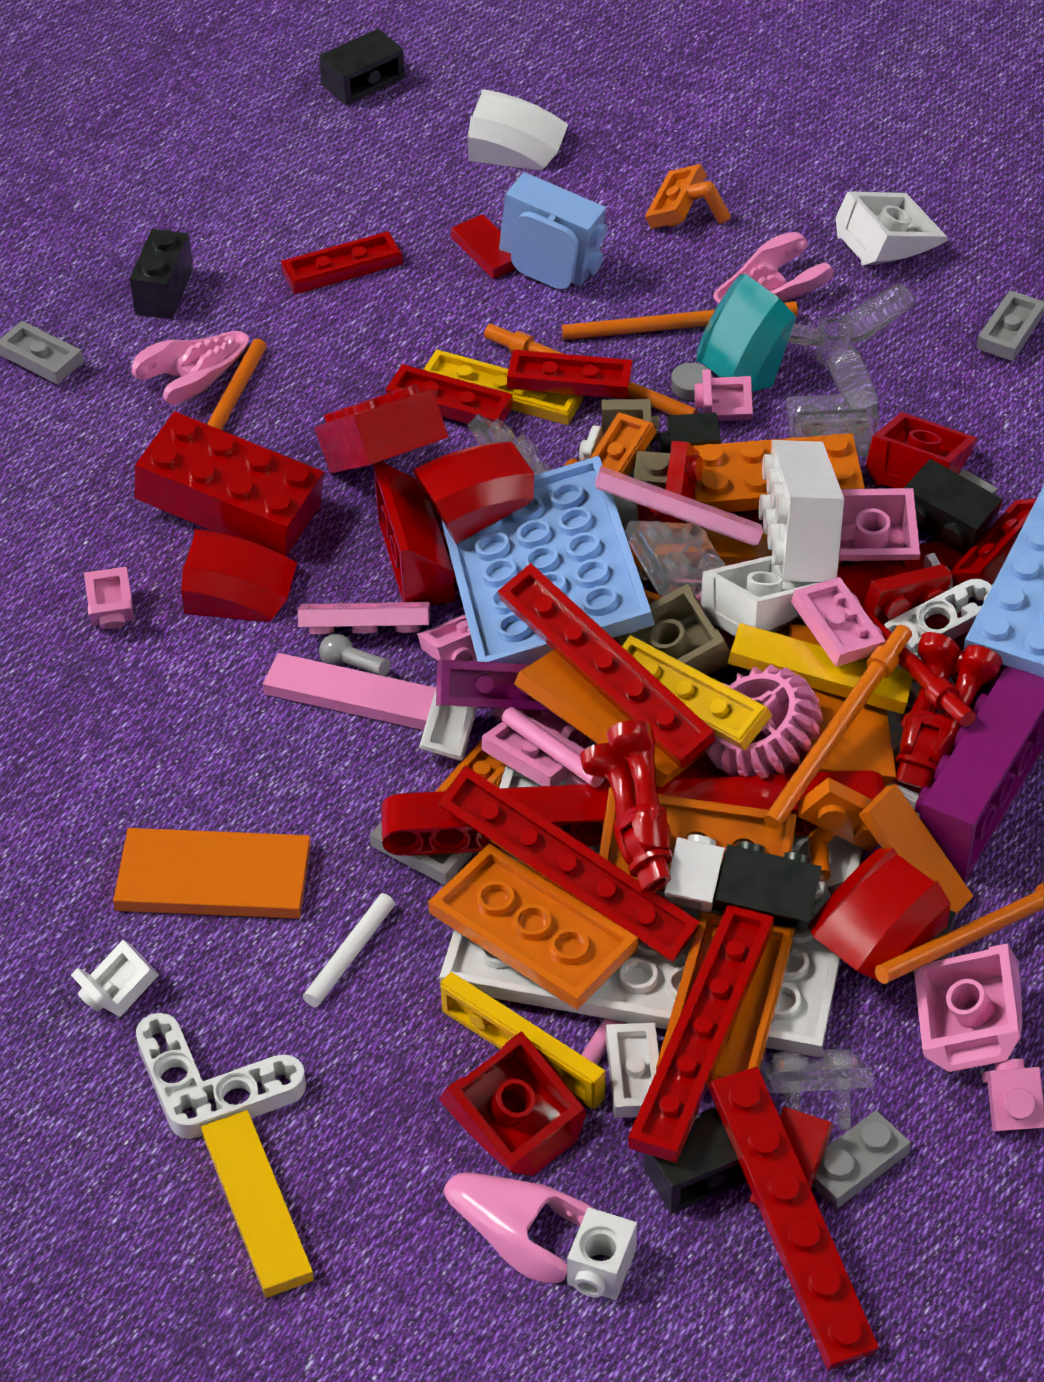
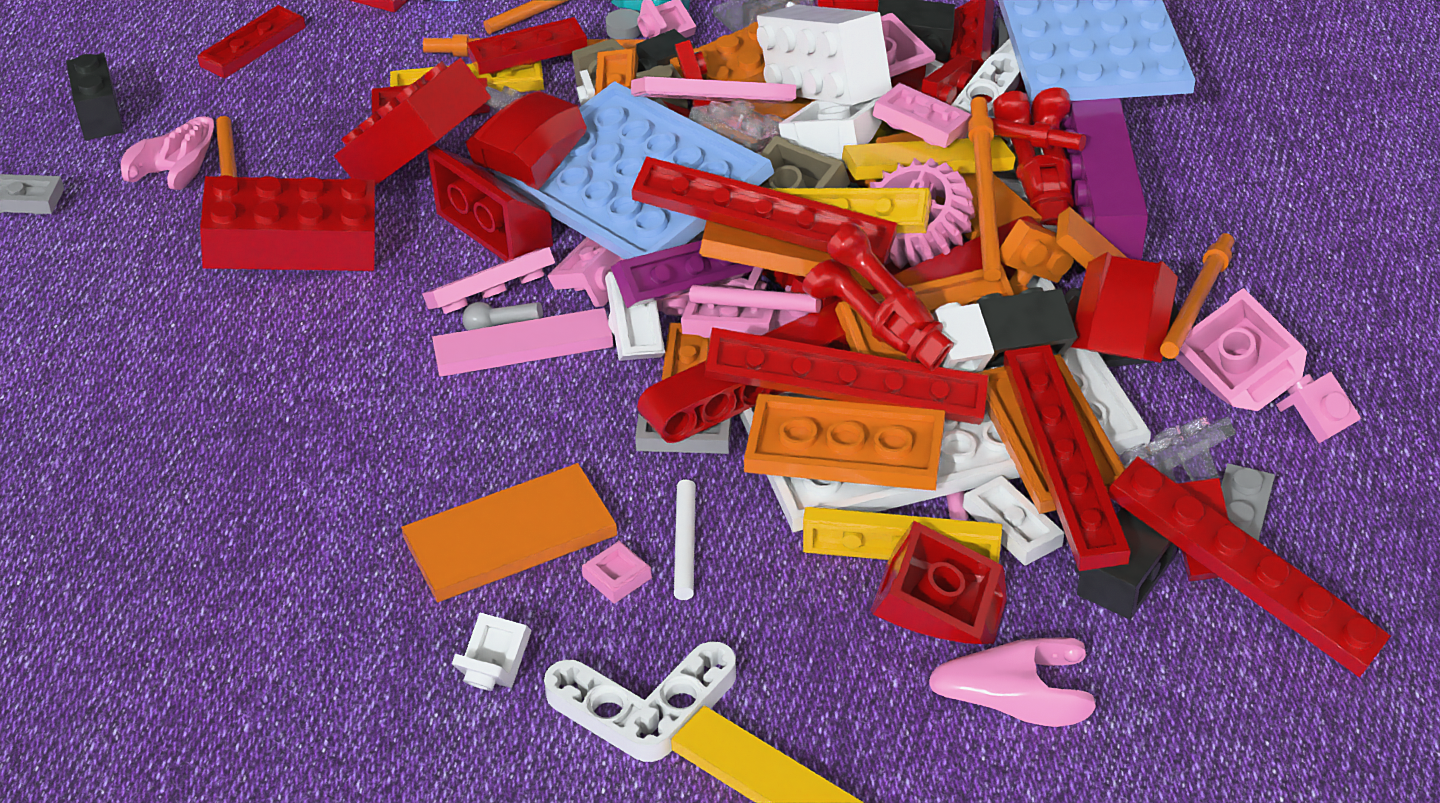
camera: 30 degrees left, 5 degrees down
(109, 597) = (238, 353): bright pink bracket -> none
(234, 578) = (347, 295): red slope -> none
(272, 953) = (616, 572): none -> bright pink tile
(601, 1235) = (1114, 671): white brick -> none

